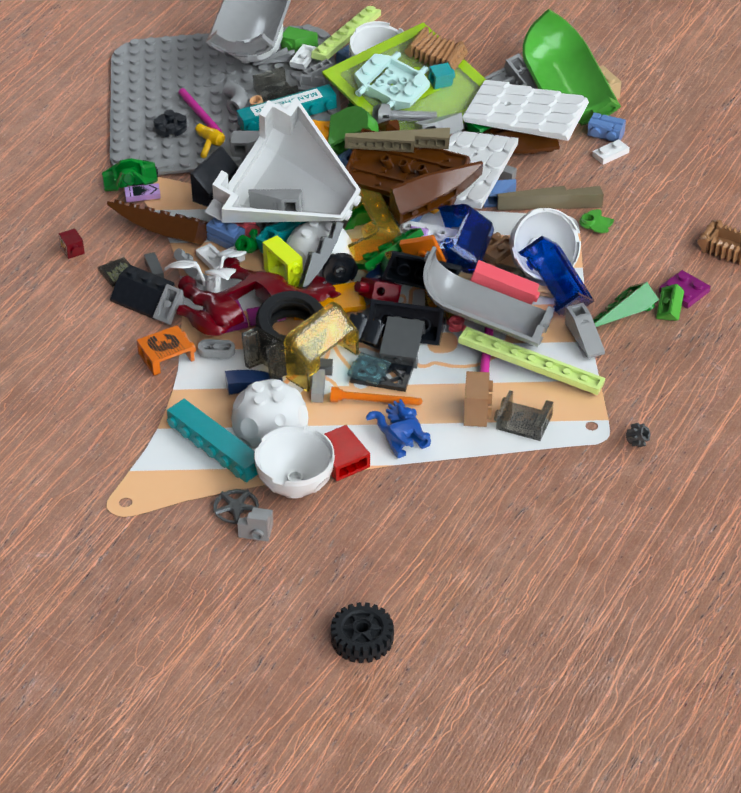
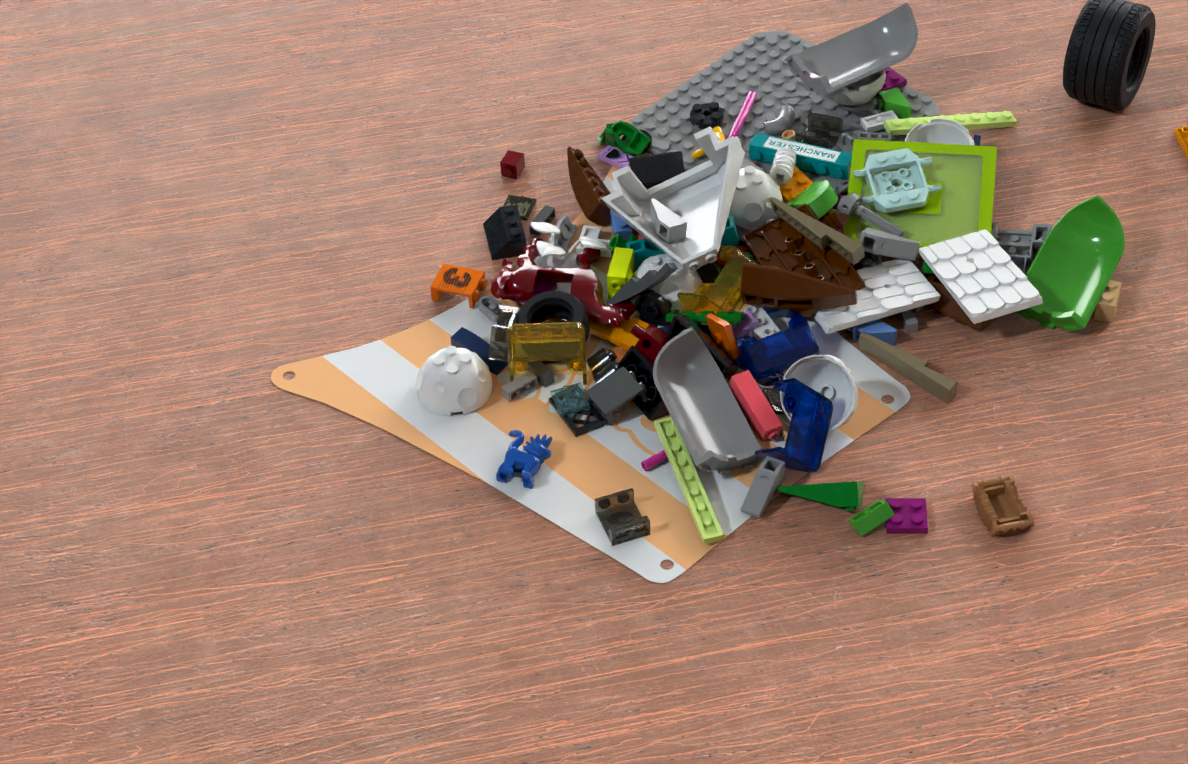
camera: 50 degrees right, 0 degrees up
(168, 304) = (508, 249): light grey slope -> none
(213, 439) = (393, 374): teal brick -> none
(234, 506) = (345, 431): dark grey wheel -> none
(256, 525) = (335, 452): light grey brick -> none
(294, 461) = (402, 423): white rock -> none
(339, 394) = (521, 402): orange piece -> none
(349, 453) = (458, 445): red brick -> none
(362, 632) = (288, 578): black wheel -> none
(434, 50) = (970, 178): medium nougat piece -> none
(441, 75) = (947, 202): teal brick -> none
(477, 399) = (599, 475): medium nougat brick -> none
(595, 221) = (920, 410): bright green plate -> none
(606, 127) = (1050, 339): medium blue brick -> none
(610, 151) = (1026, 362): white plate -> none
(638, 435) = (677, 590): dark grey gear -> none

